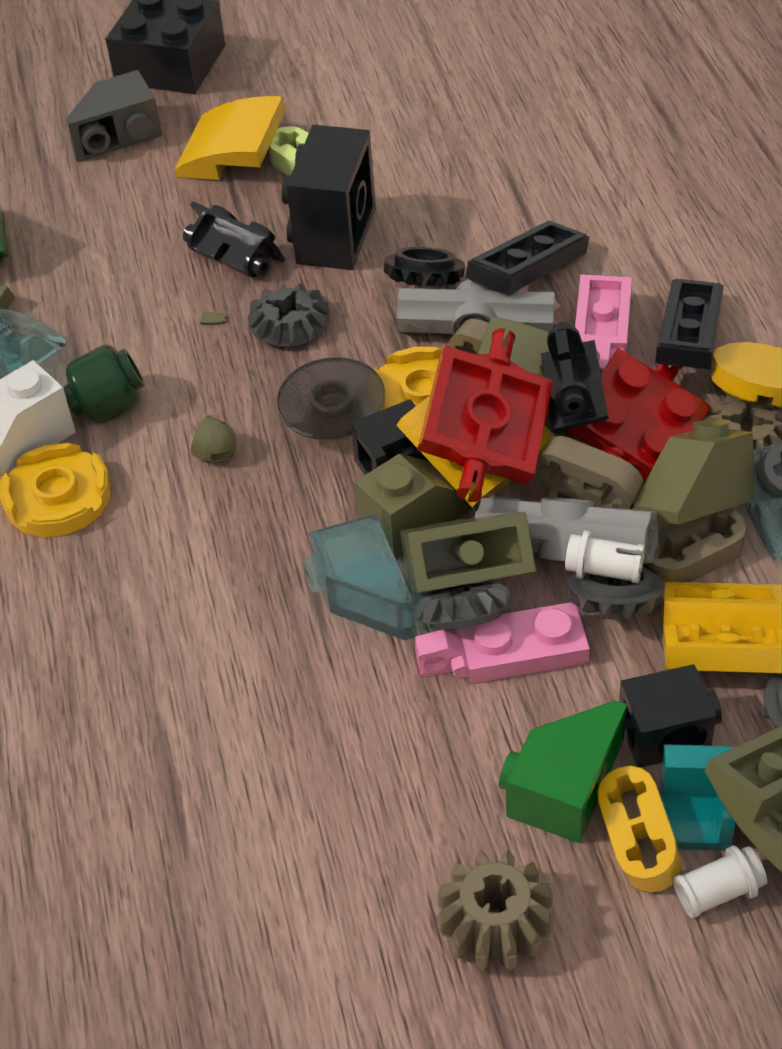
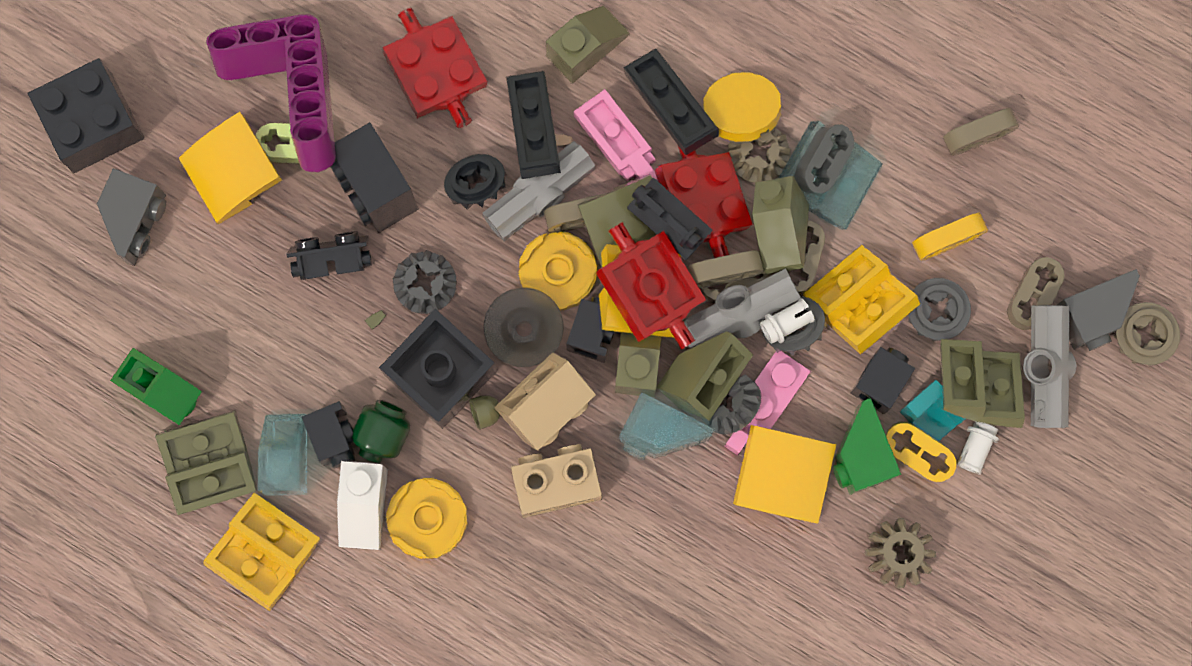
camera: 50 degrees left, 30 degrees up
(58, 343) = (330, 435): none -> black brick
(203, 542) = (556, 481): none -> tan brick
(210, 365) = (438, 368): none -> black brick
(273, 462) = (545, 401): none -> tan brick
(342, 88) = (290, 46): none -> magenta beam
(447, 717) = (784, 474): none -> yellow slope
(489, 180) = (434, 67): none -> red plate
(653, 235) = (584, 42): none -> olive slope

